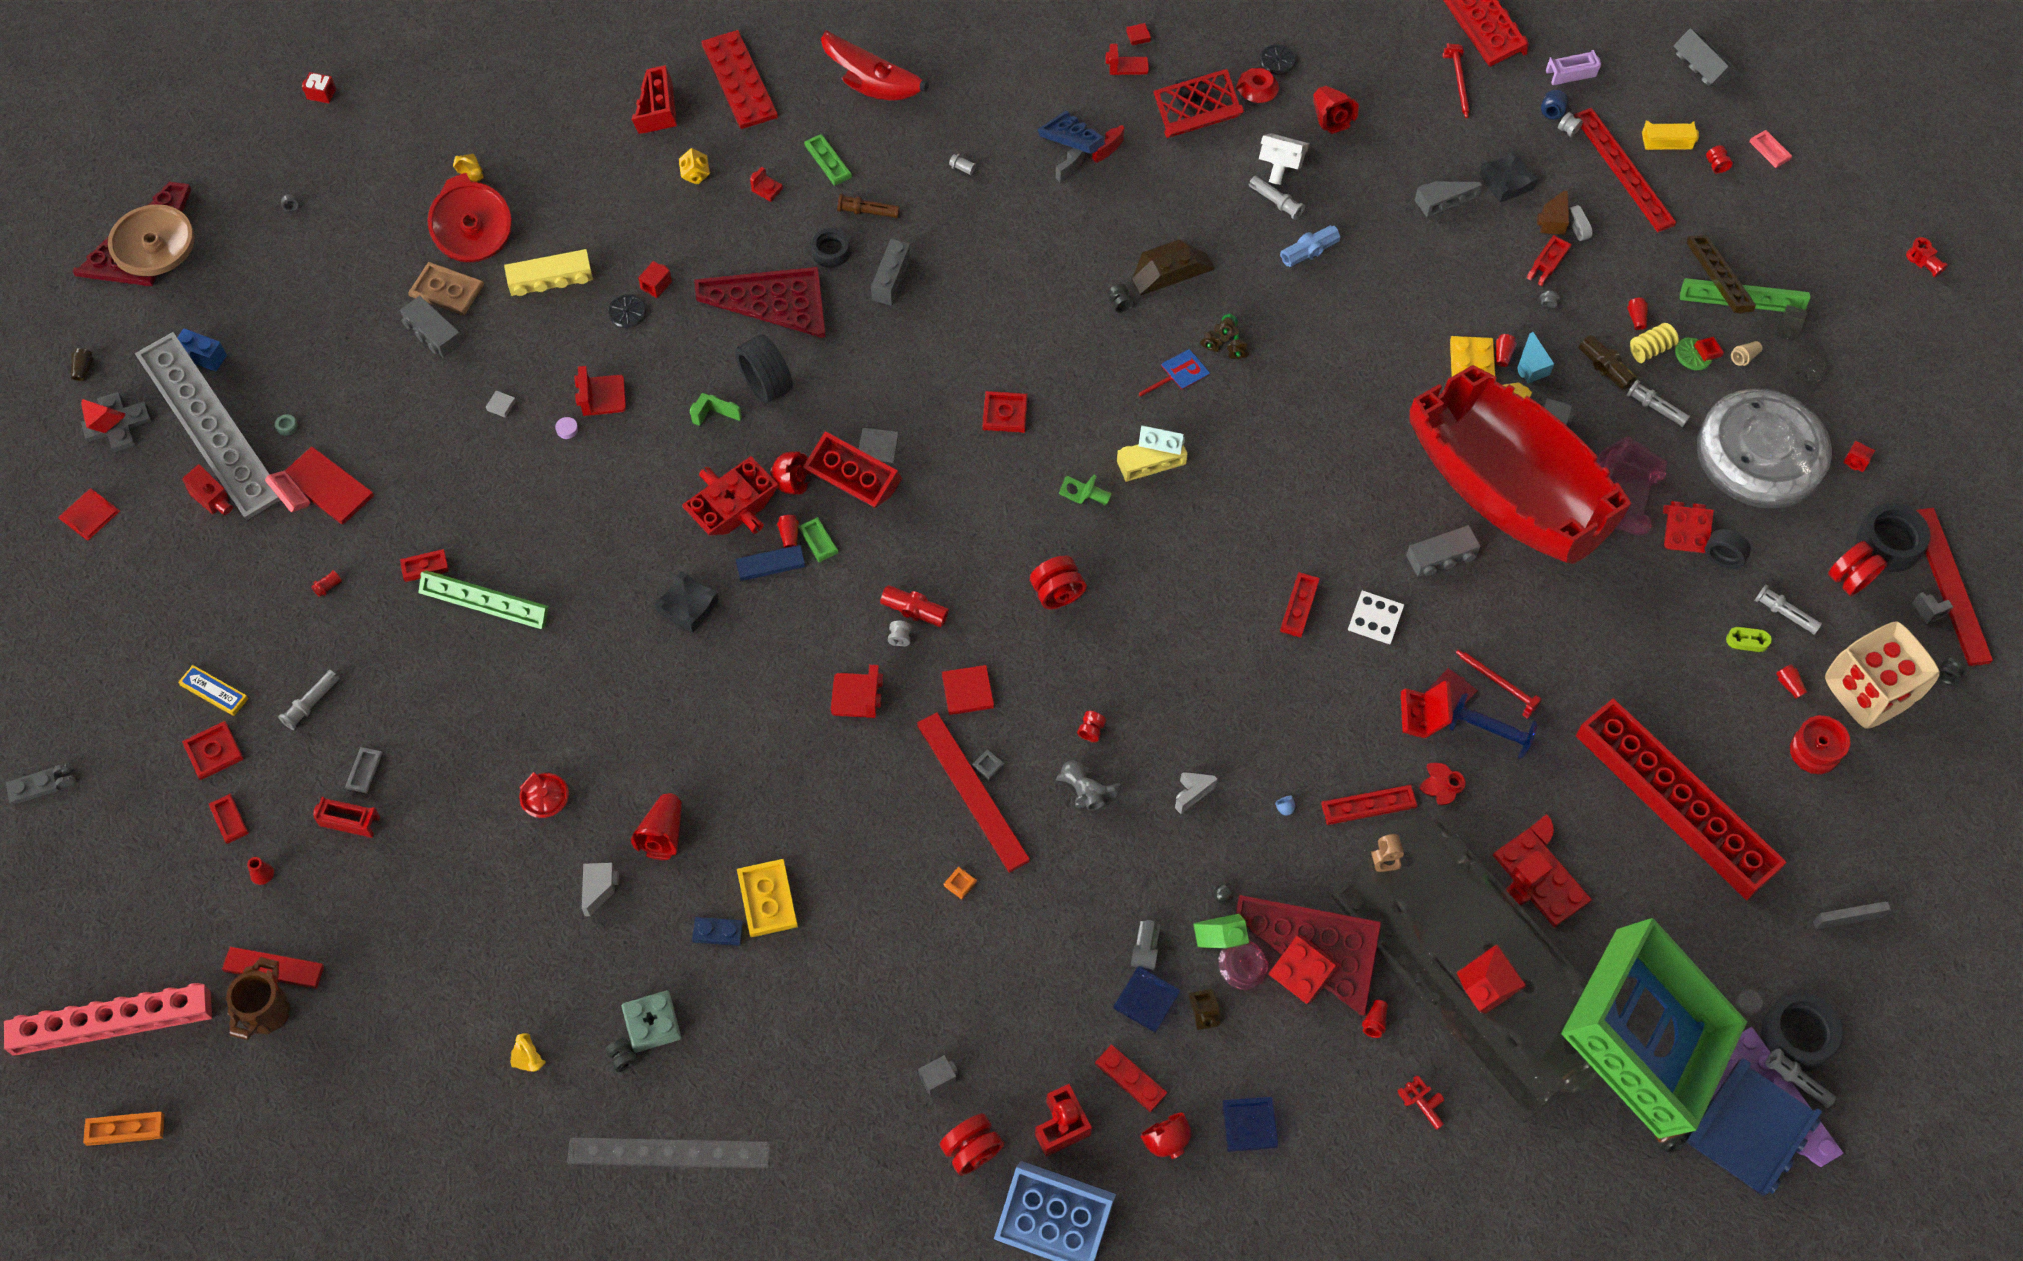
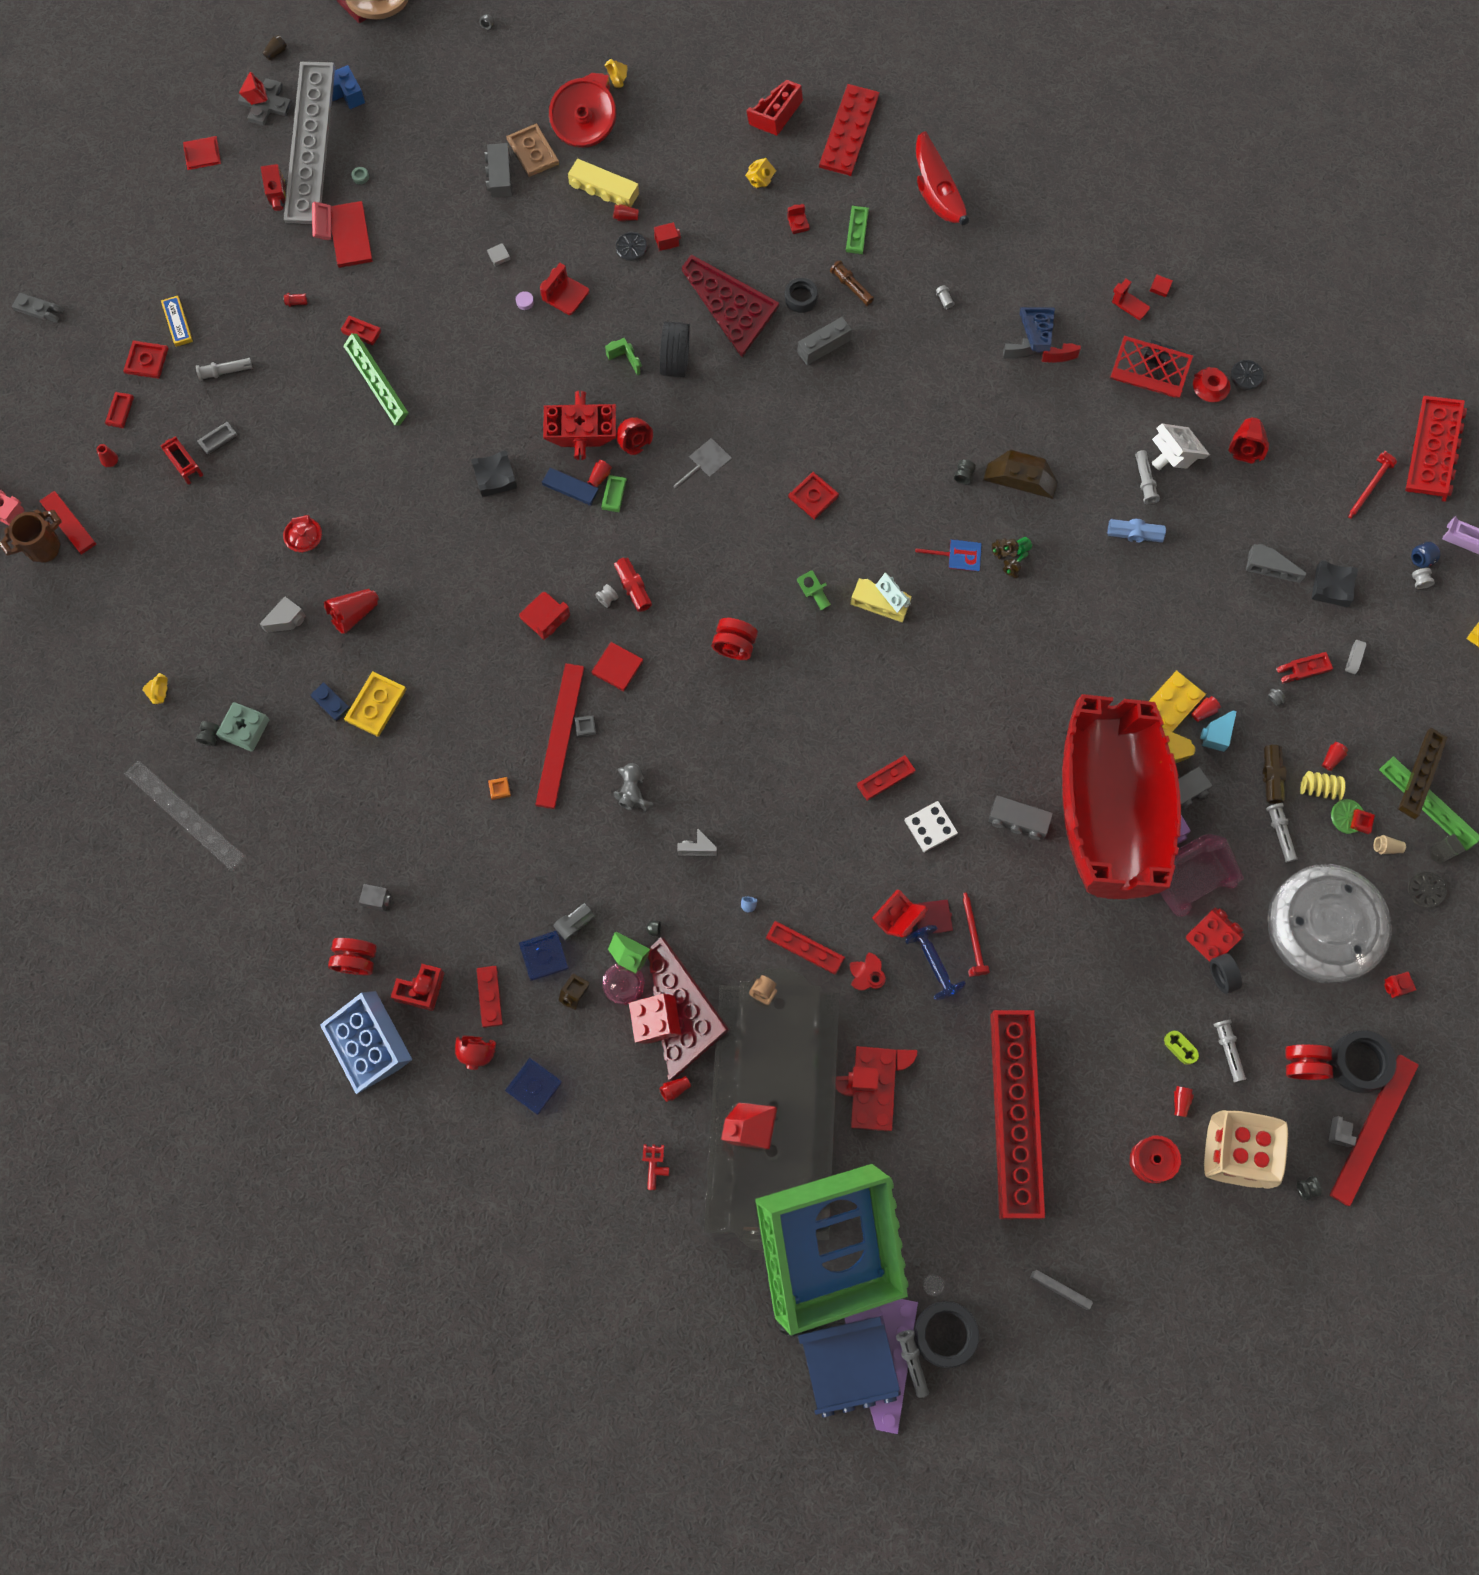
camera: 40 degrees right, 10 degrees up
(593, 285) = (625, 213): none -> red cone
(852, 470) = (672, 463): red slope -> none
(1091, 727) = (671, 752): red wheel -> none
(1555, 215) = (1341, 637): reddish brown slope -> none
(1625, 170) = (1433, 642): red tile -> none

